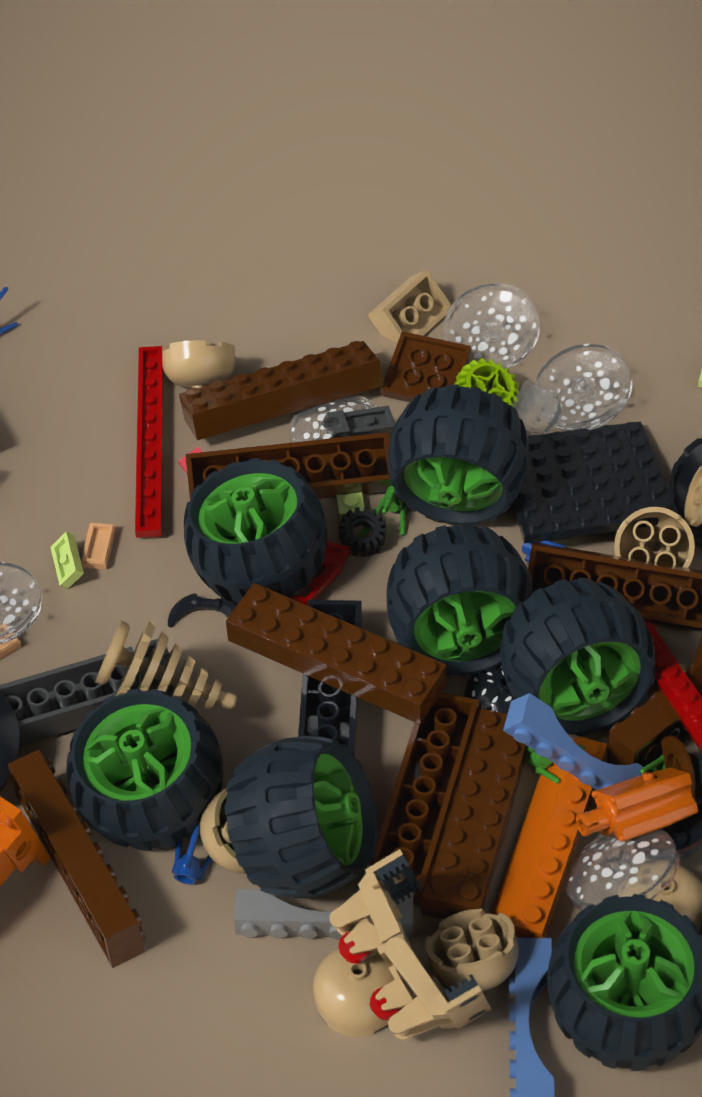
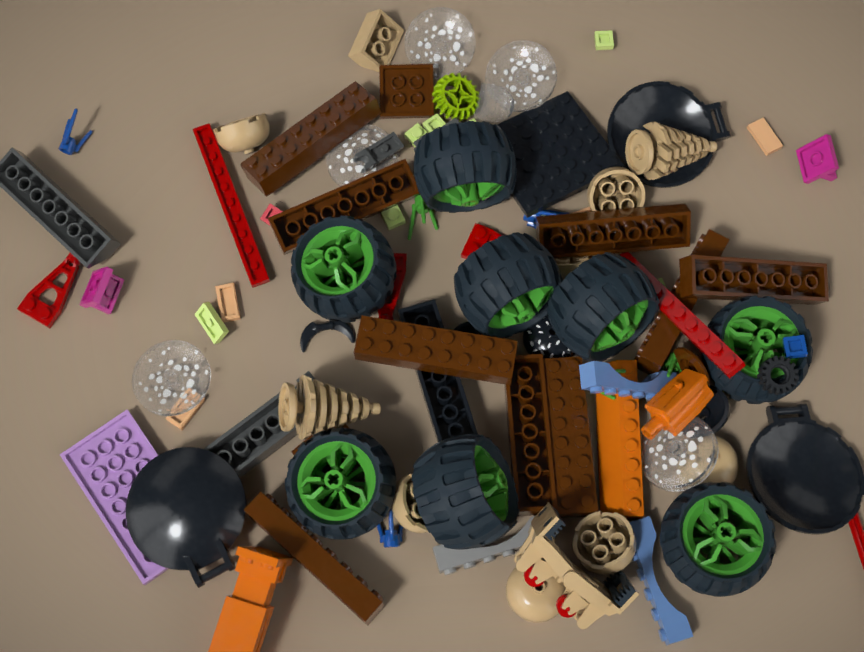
camera: 20 degrees left, 20 degrees up
(362, 518) = (410, 227): black tyre -> none

